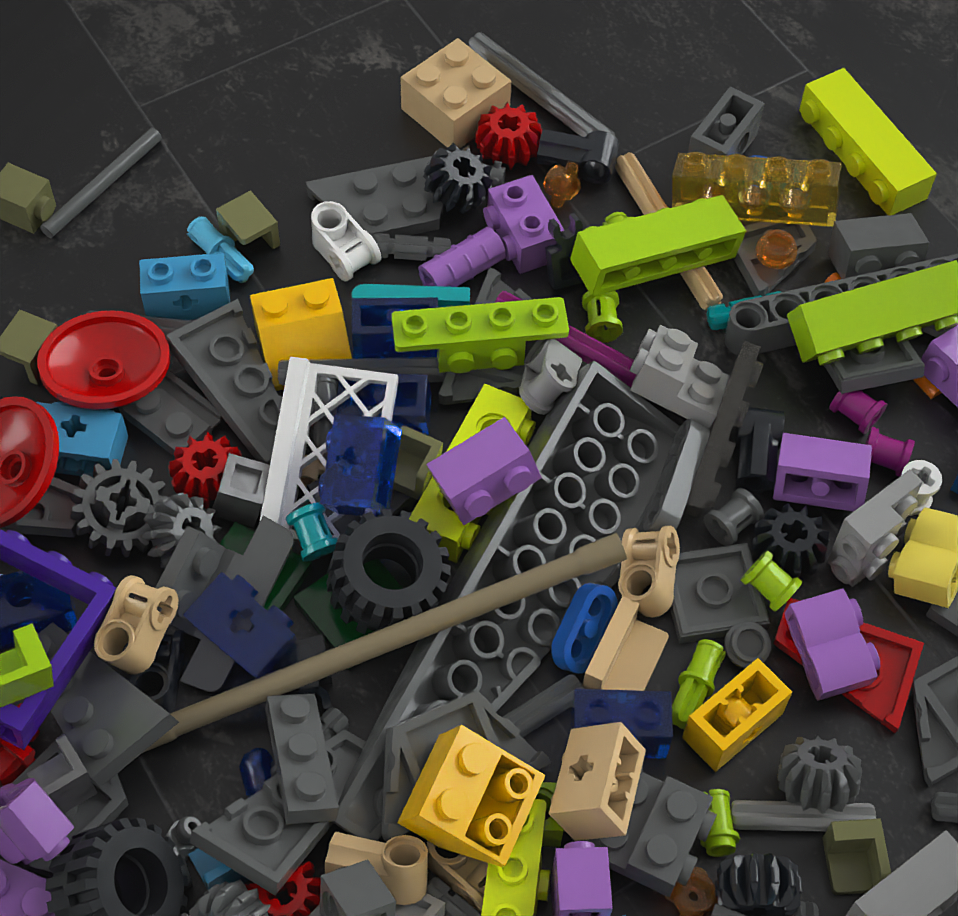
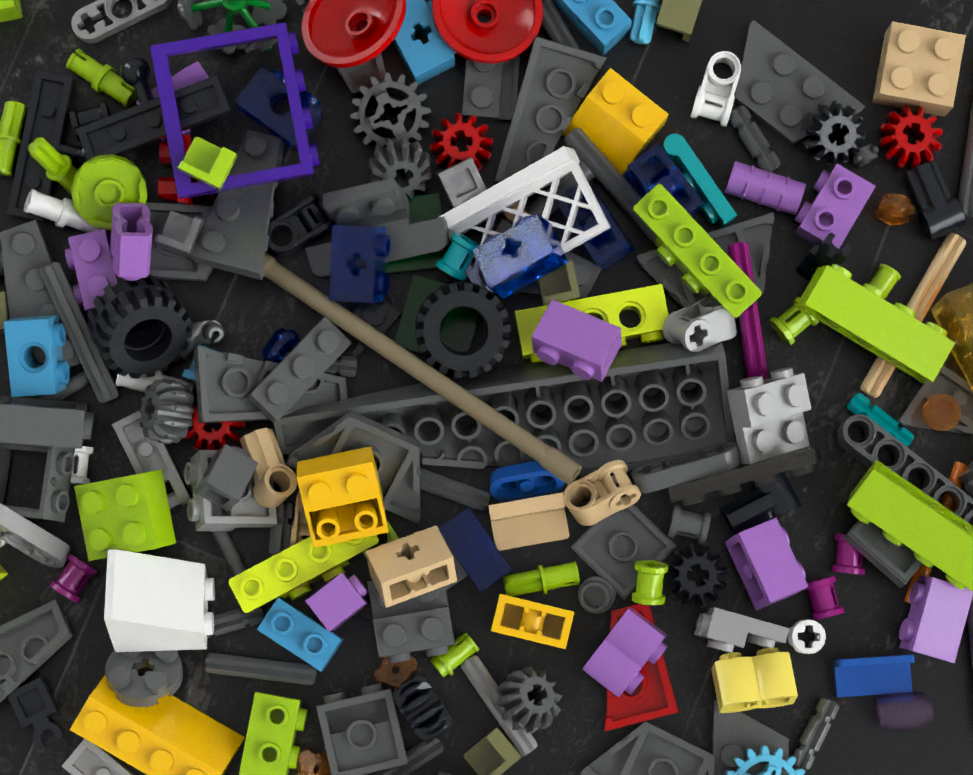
camera: 55 degrees right, 25 degrees up
(135, 623) = (310, 199): tan piece -> none

